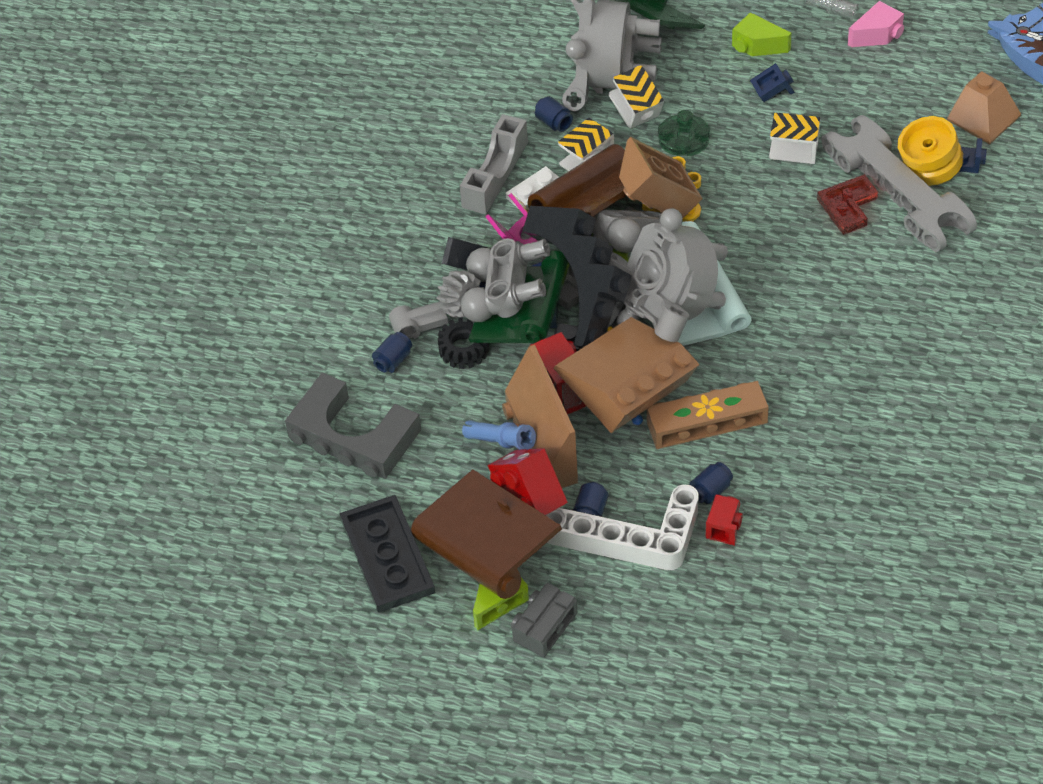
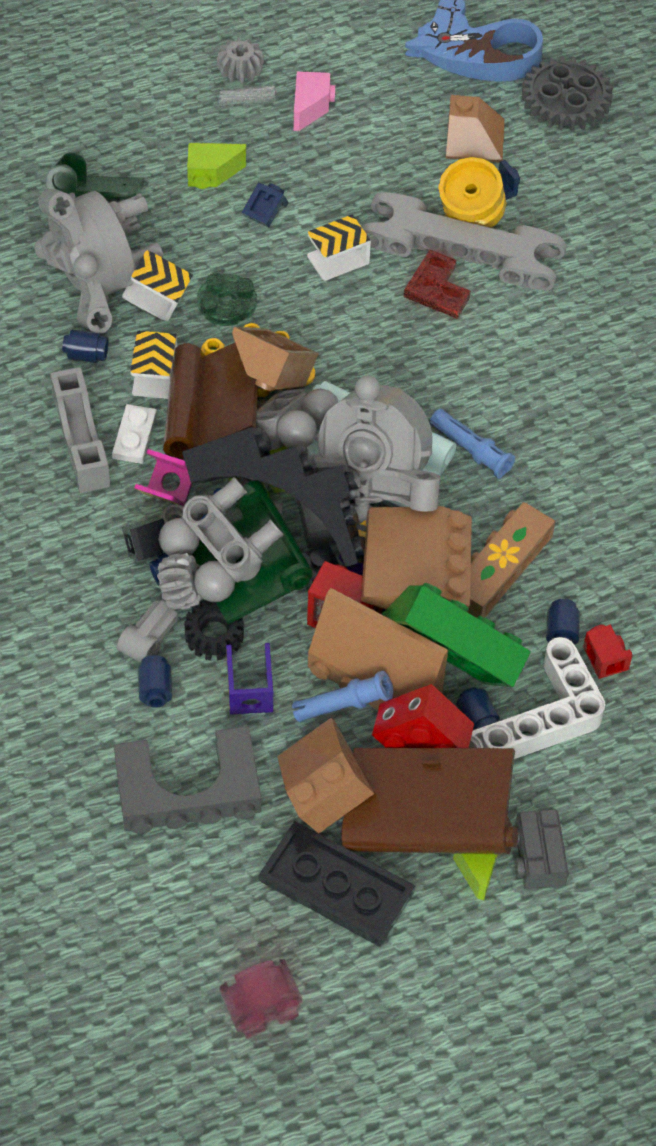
camera: 45 degrees left, 5 degrees up
(263, 587) = (262, 996): none -> clear pink brick
(433, 477) = (323, 777): none -> medium nougat slope
(461, 398) = (237, 696): none -> dark purple piece
(602, 432) = (470, 641): none -> green slope
(769, 333) = (482, 449): none -> medium blue pin

